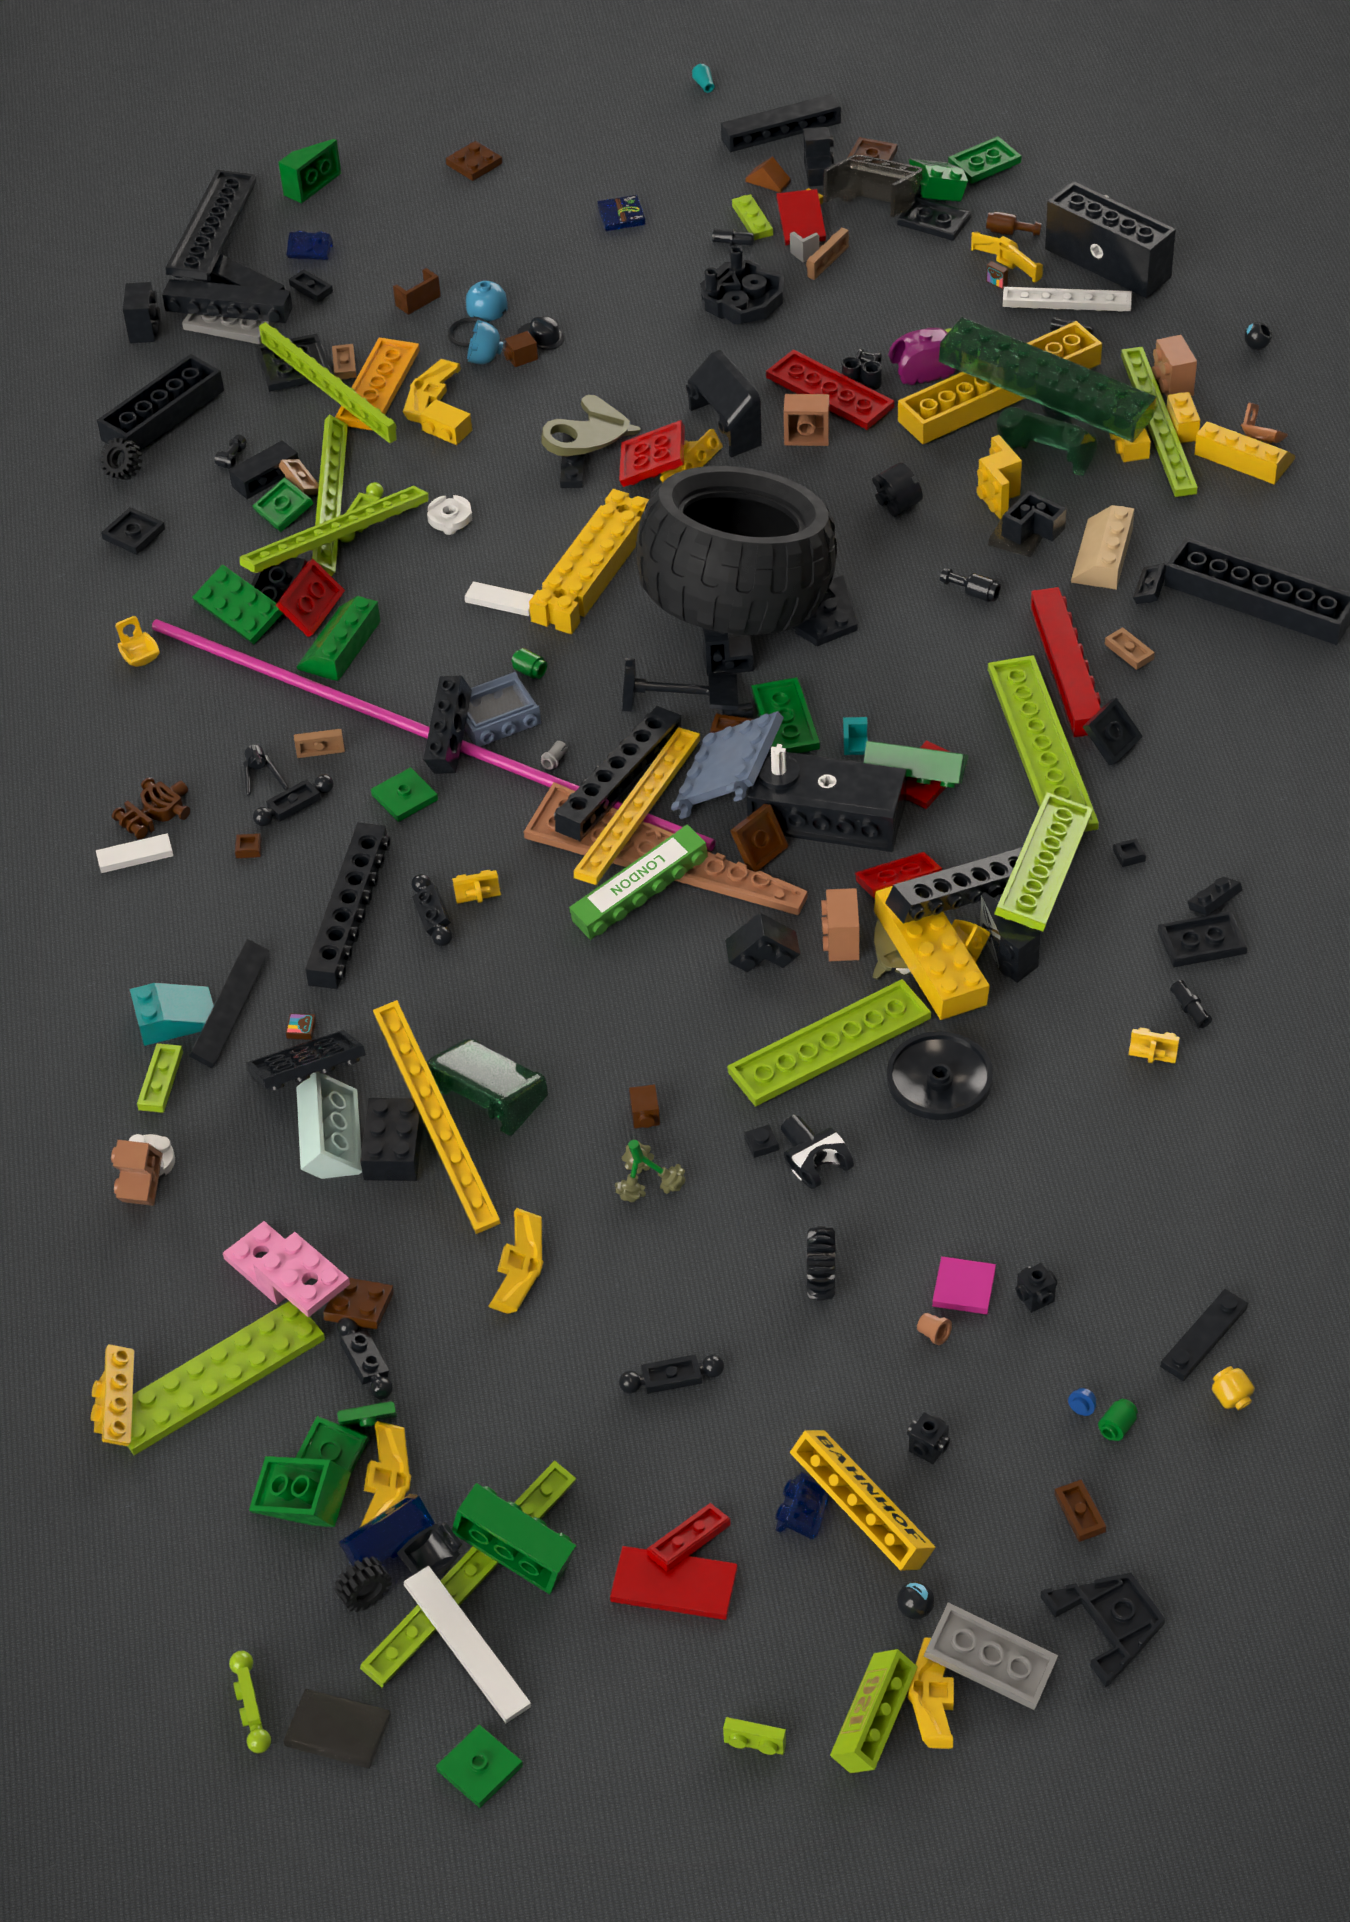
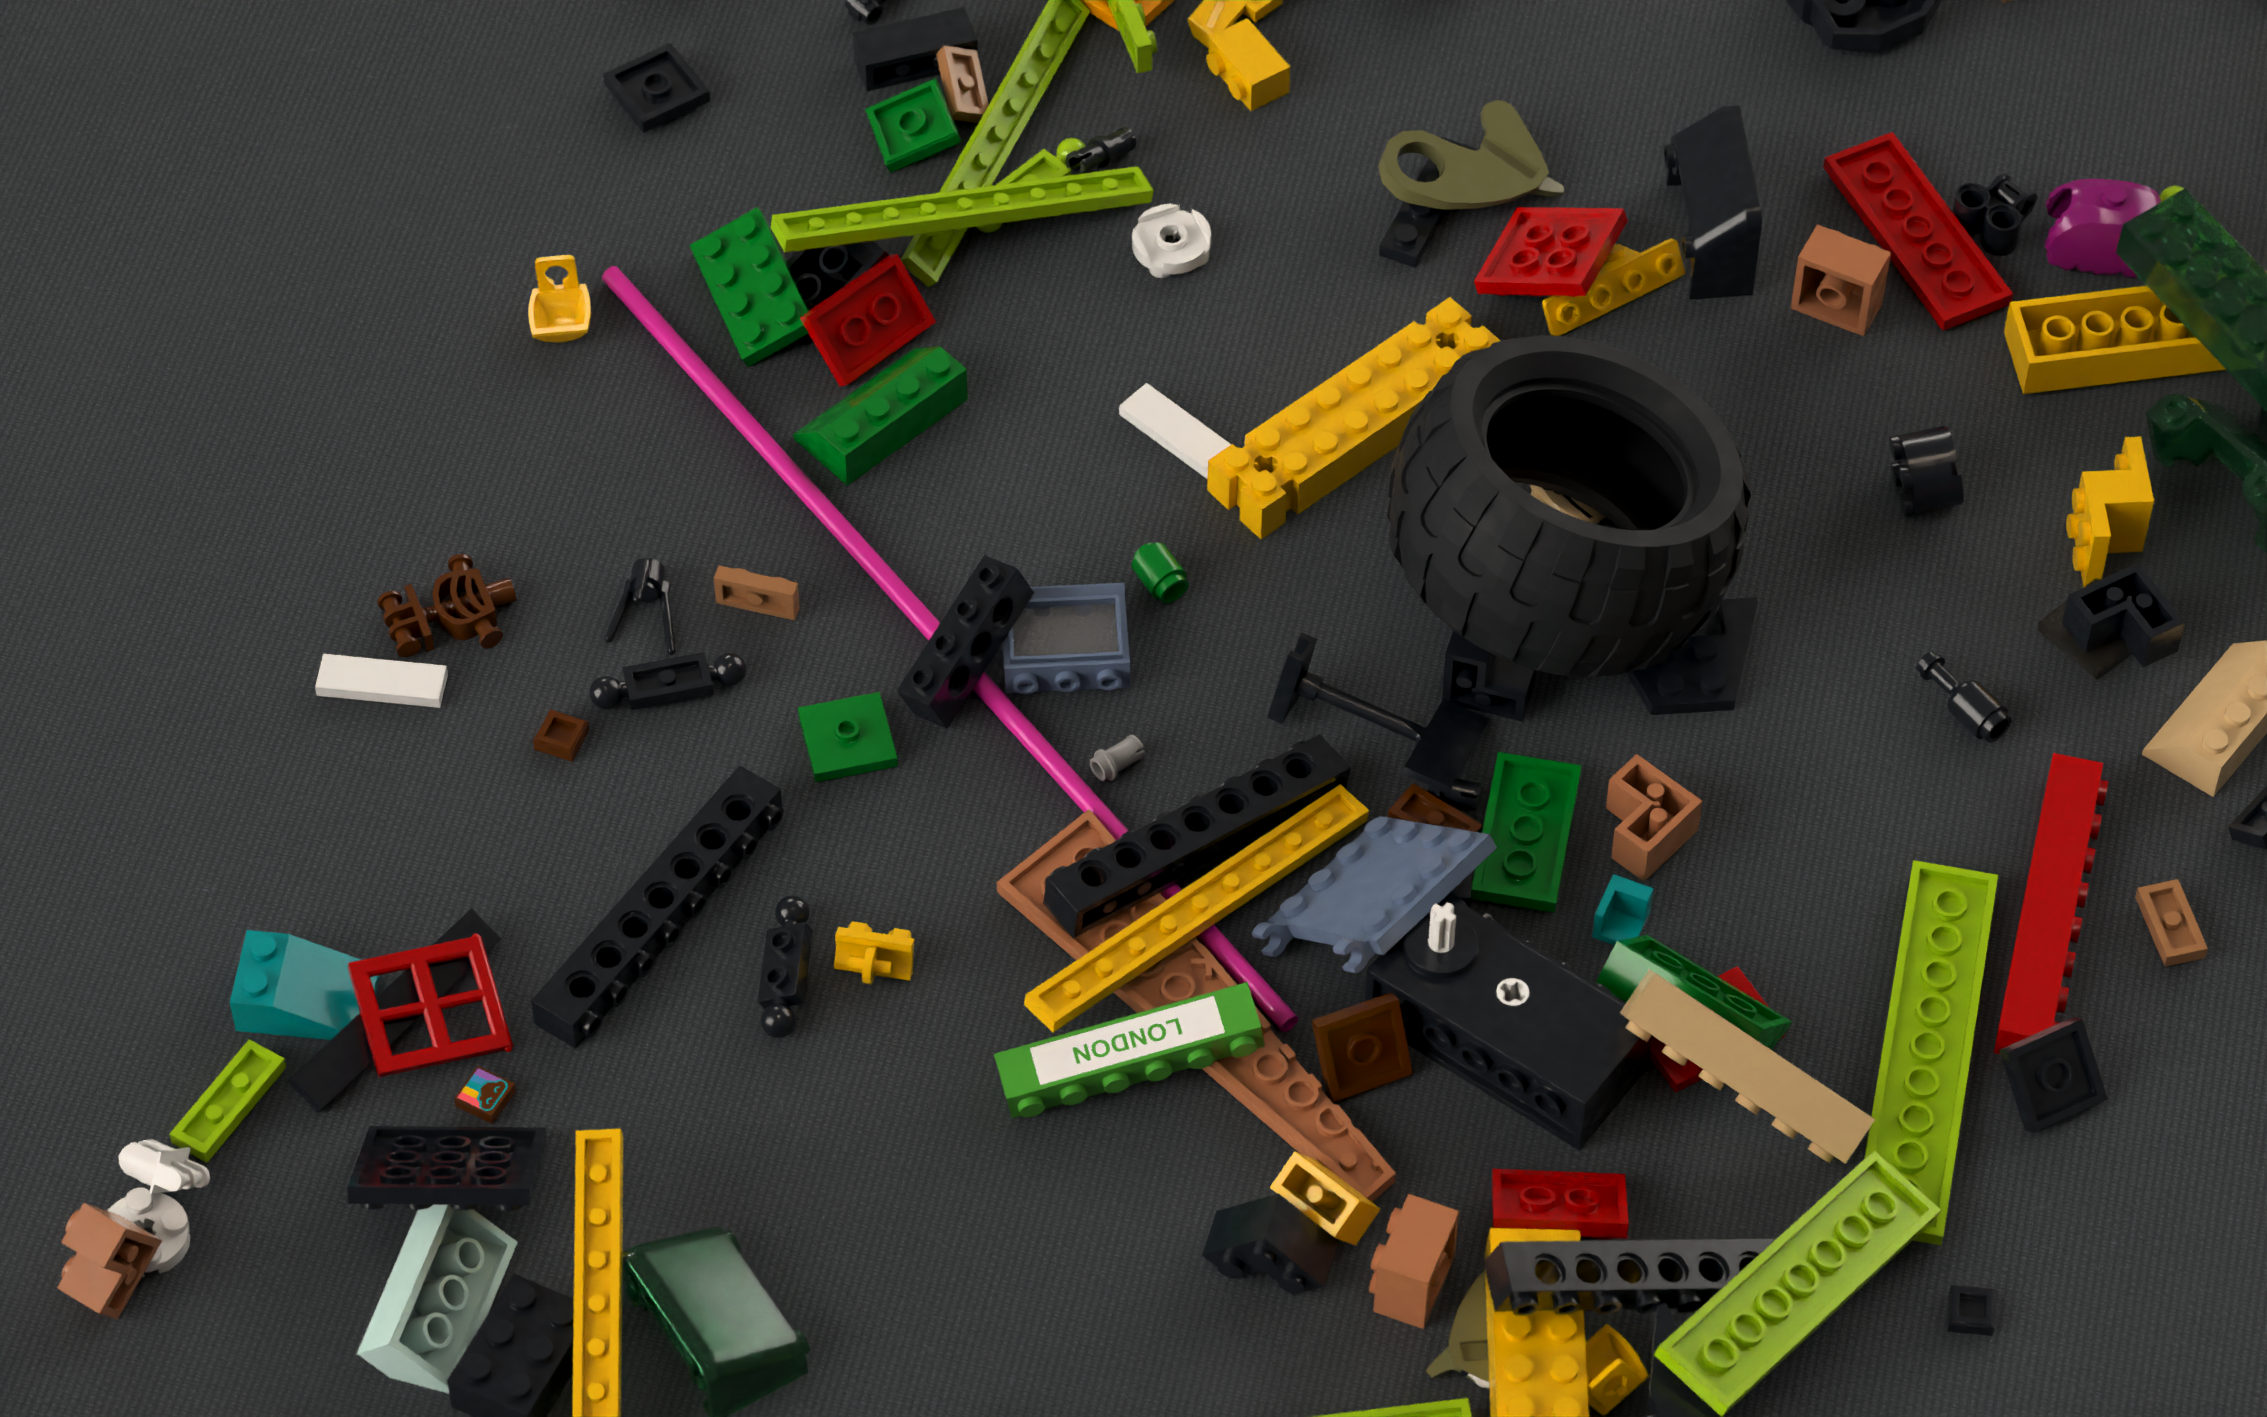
camera: 20 degrees right, 5 degrees up
(141, 1120) = (162, 1167): none -> white arm
(248, 992) = (430, 1006): none -> red window
(390, 484) = (1101, 151): none -> black pin
(786, 912) = (1325, 1198): none -> yellow brick
(847, 684) = (1654, 816): none -> nougat brick
(963, 774) = (1747, 1067): none -> tan brick

